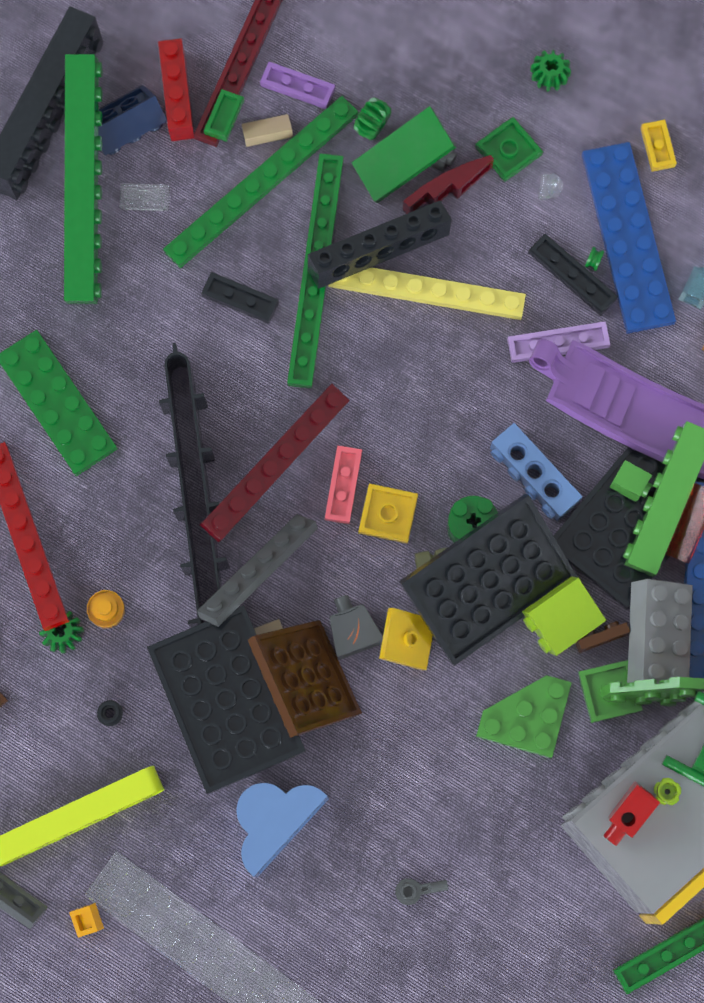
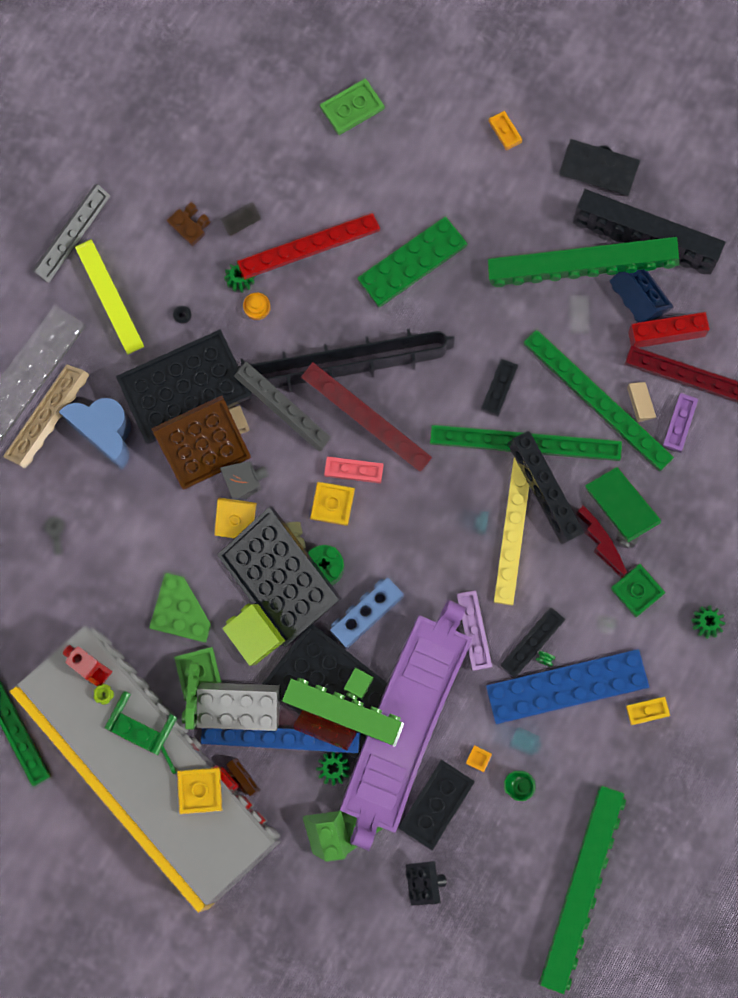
camera: 90 degrees right, 0 degrees up
(86, 920) = (38, 308): light orange plate -> none
(224, 115) = (648, 366): green tile -> none
(251, 903) = (46, 416): none -> tan plate
(372, 118) = (653, 479): green gear -> none
(420, 326) = (481, 522): none -> clear light blue plate
(612, 632) = (242, 672): reddish brown plate -> none

